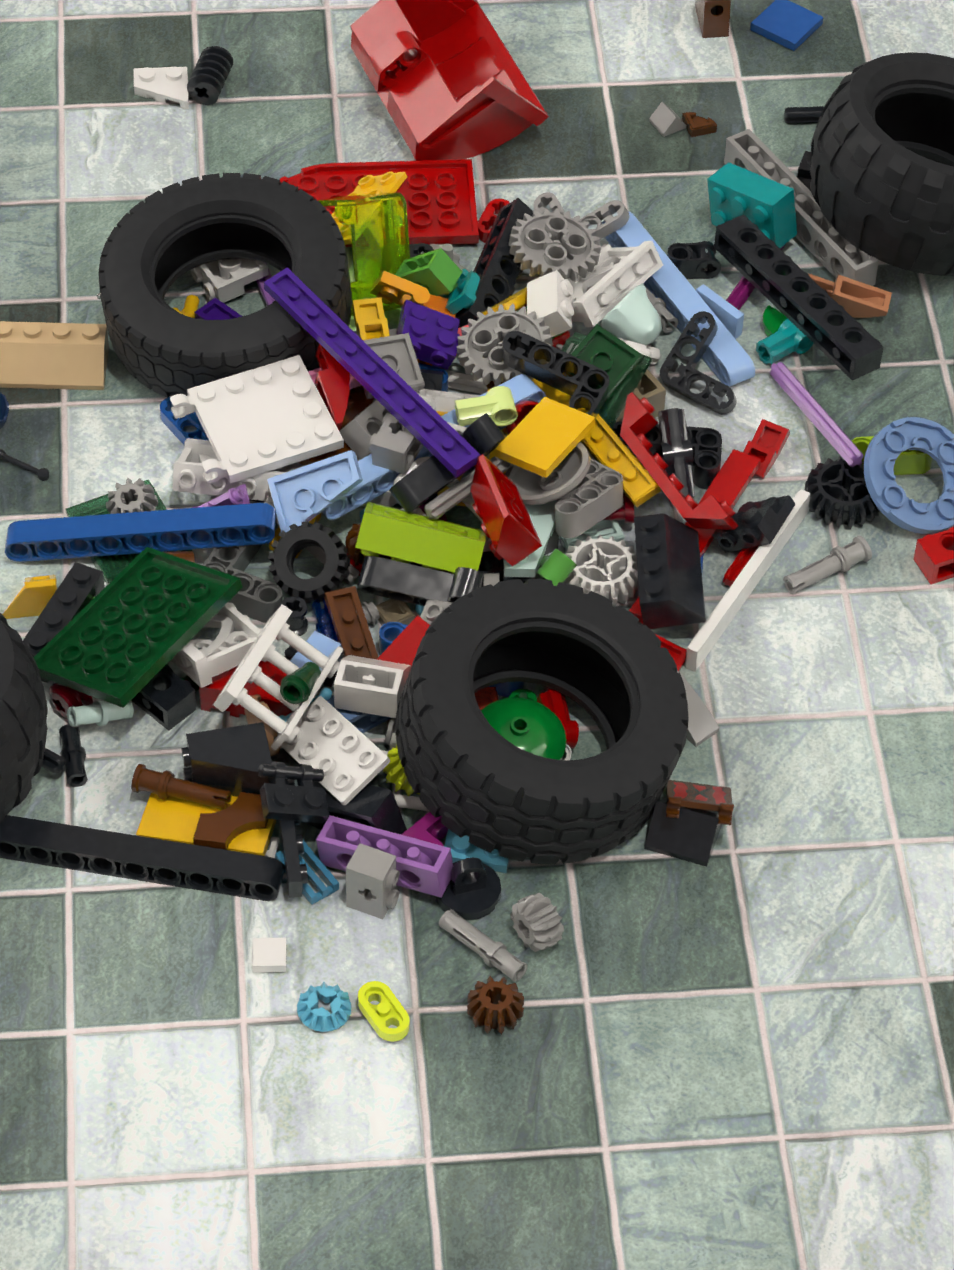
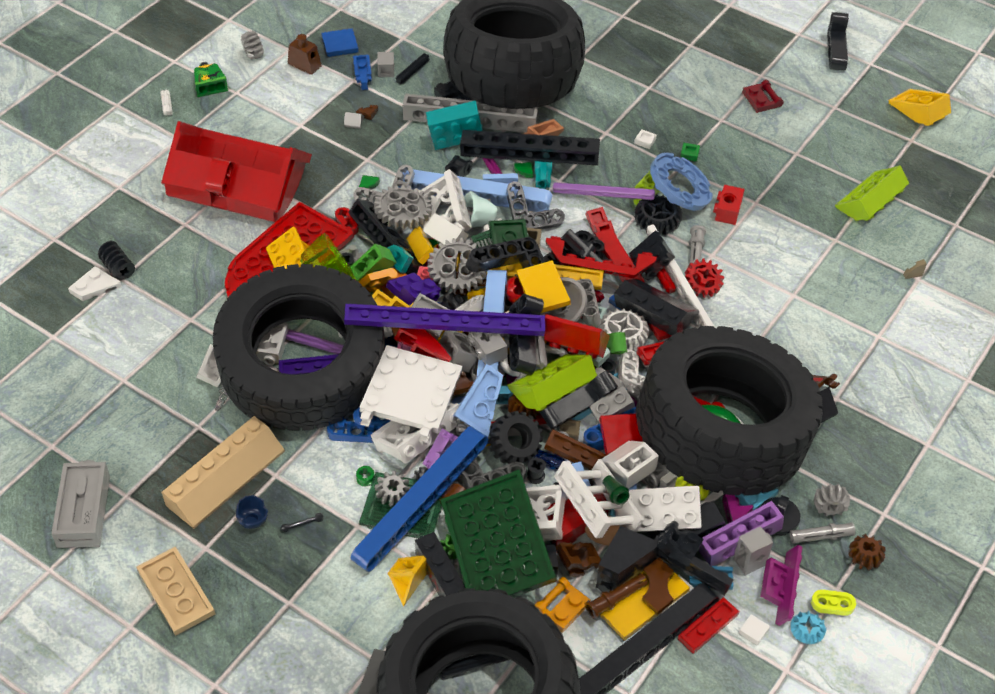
camera: 50 degrees left, 0 degrees up
(121, 762) = (567, 609): none -> light orange plate
(133, 468) = (364, 481): none -> green bush
(196, 716) = (578, 557): none -> reddish brown cylinder
(234, 907) = (708, 625): none -> red tile
(358, 937) = (781, 583): none -> magenta bracket
(464, 384) = (453, 300): none -> black gear
(496, 403) = (504, 293): yellowish green piece -> none
(579, 199) = (369, 181): none -> green tile
(760, 73) = (362, 70): none -> blue hinge
(771, 608) = (704, 277): none -> red gear
(795, 85) = (385, 64): none -> light grey brick

